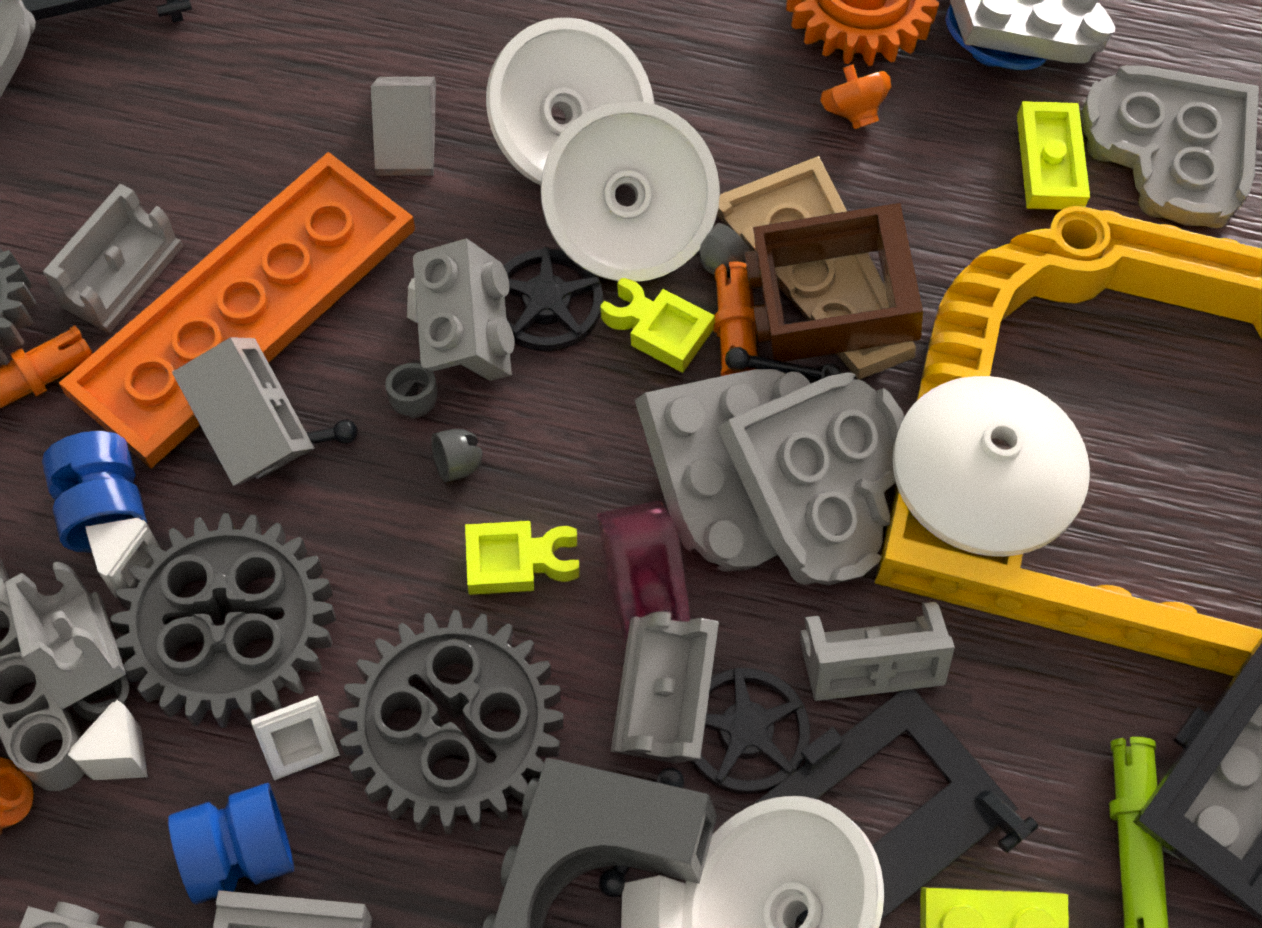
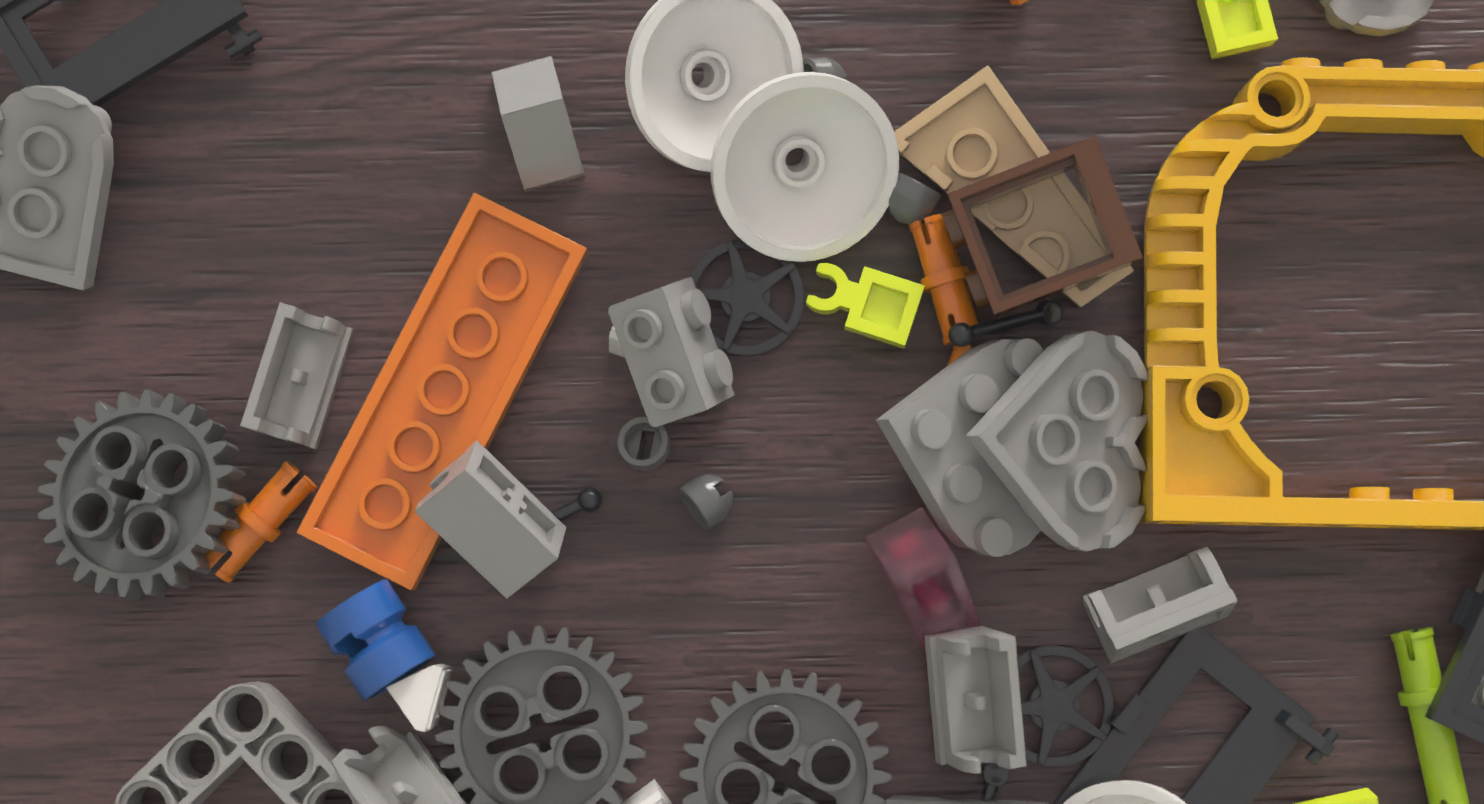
camera: 15 degrees left, 20 degrees up
(505, 556) = (788, 598): neon yellow plate -> none
(987, 495) = (1194, 404): white dish -> none

